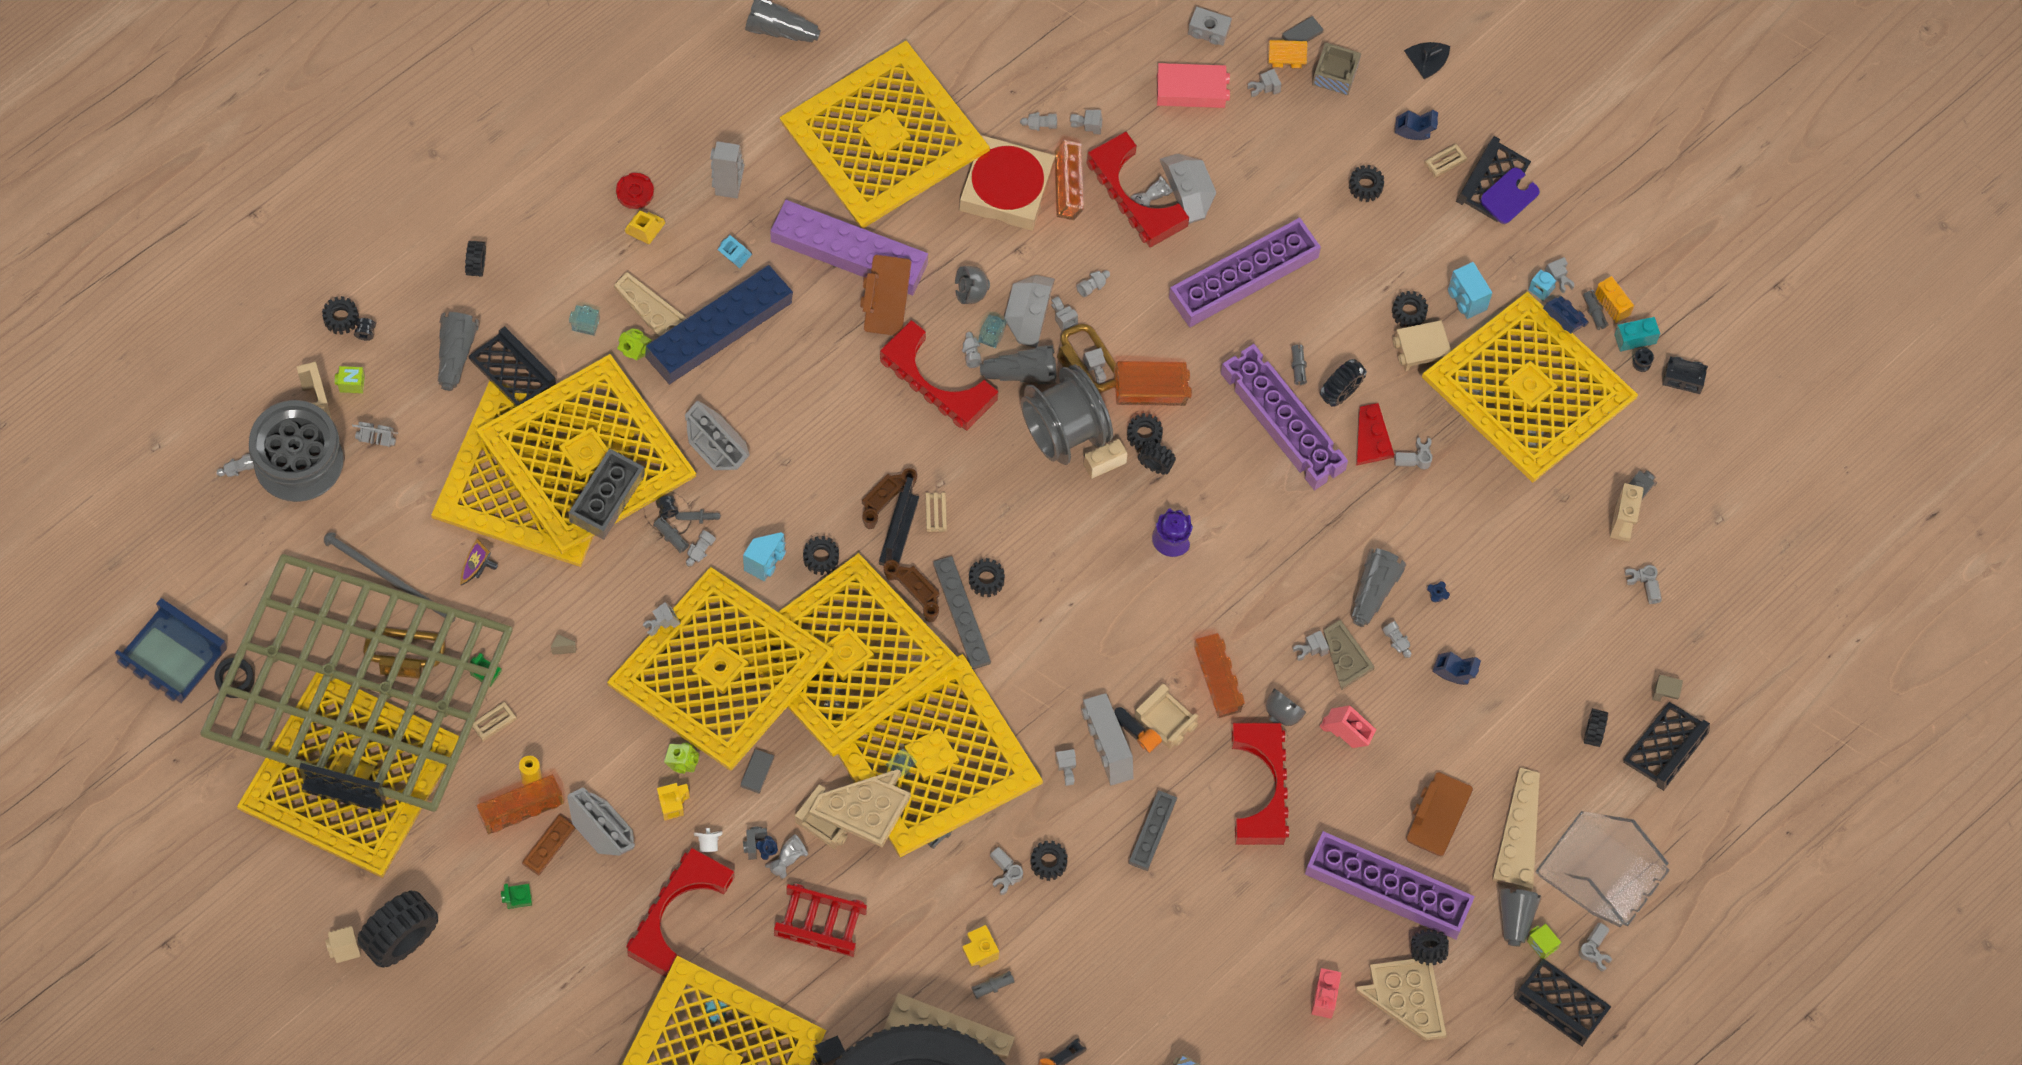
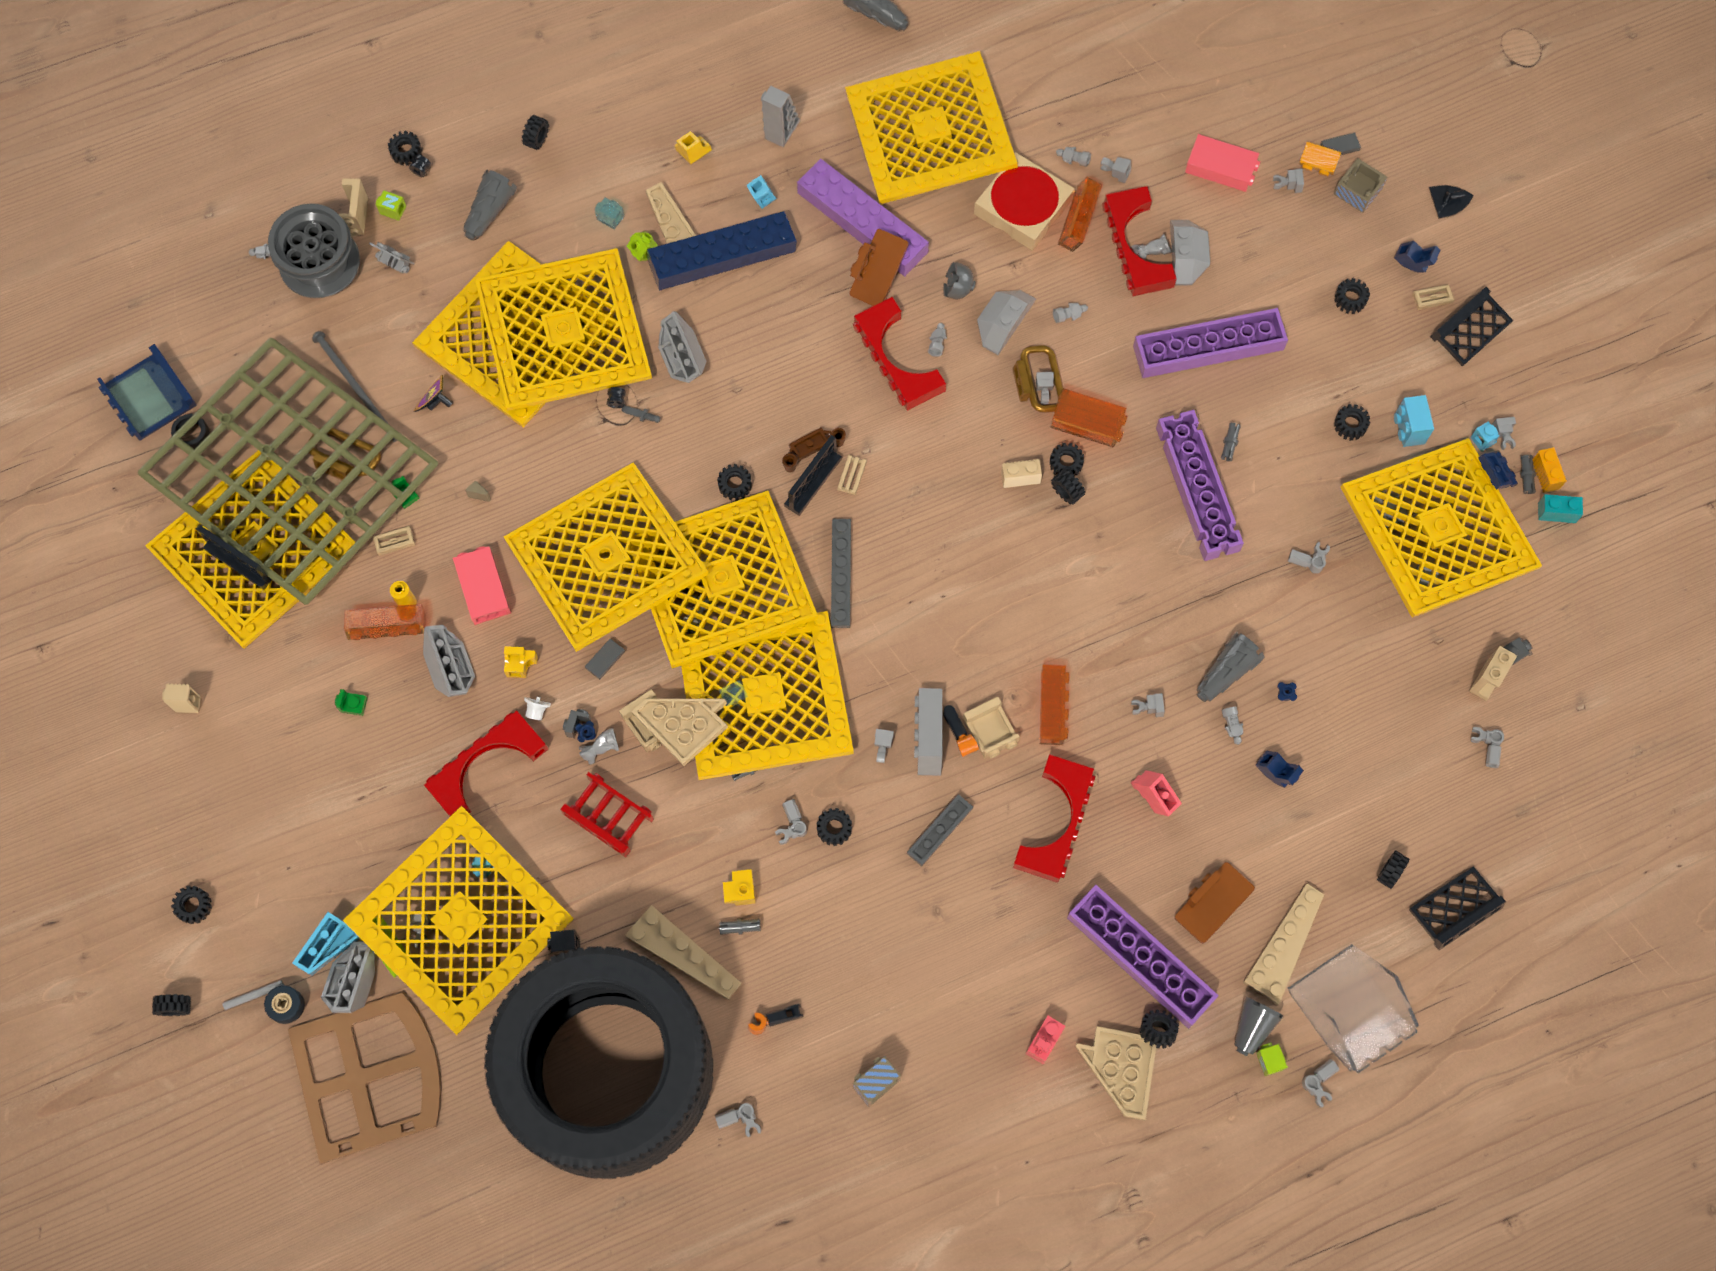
camera: 25 degrees right, 5 degrees up
(397, 929) = (227, 700): black tyre -> none
(523, 356) = (542, 227): black fence -> none
(549, 845) = (397, 666): dark orange tile -> none
(604, 737) = (481, 585): none -> coral brick
(606, 494) = (562, 369): dark grey brick -> none
(635, 190) = (696, 115): red tile -> none
(664, 616) = (573, 493): light grey piece -> none
(671, 534) = (610, 423): dark grey pin -> none
(681, 758) = (541, 625): lime brick -> none
(696, 552) = (627, 446): light grey piece -> none
(763, 555) = (682, 465): medium azure slope -> none
(916, 585) = (809, 536): reddish brown plate -> none
(978, 586) = (874, 558): black tyre -> none
(992, 331) = (961, 328): clear light blue brick -> none
(1025, 366) = (978, 367): dark grey cone -> none
(1065, 316) = (1032, 335): light grey piece -> none
(1066, 415) = (996, 422): dark grey wheel -> none
(1172, 533) = (1057, 560): dark purple hat -> none
(1204, 18) = (1254, 107): light grey brick -> none
(1283, 709) = (1101, 756): dark grey cylinder -> none
(1343, 382) = (1265, 470): black gear -> none
(1346, 654) = (1180, 724): dark tan wing -> none
(1373, 437) = (1276, 528): red wing -> none
(1421, 344) = (1351, 456): tan panel -> none
(1505, 199) = (1477, 347): dark purple piece -> none
(1551, 1013) = (1256, 1135): black fence -> none
(1643, 355) = (1560, 530): black wheel -> none
(1667, 687) = (1476, 853): dark tan panel -> none
(1685, 375) = (1593, 560): black hinge -> none

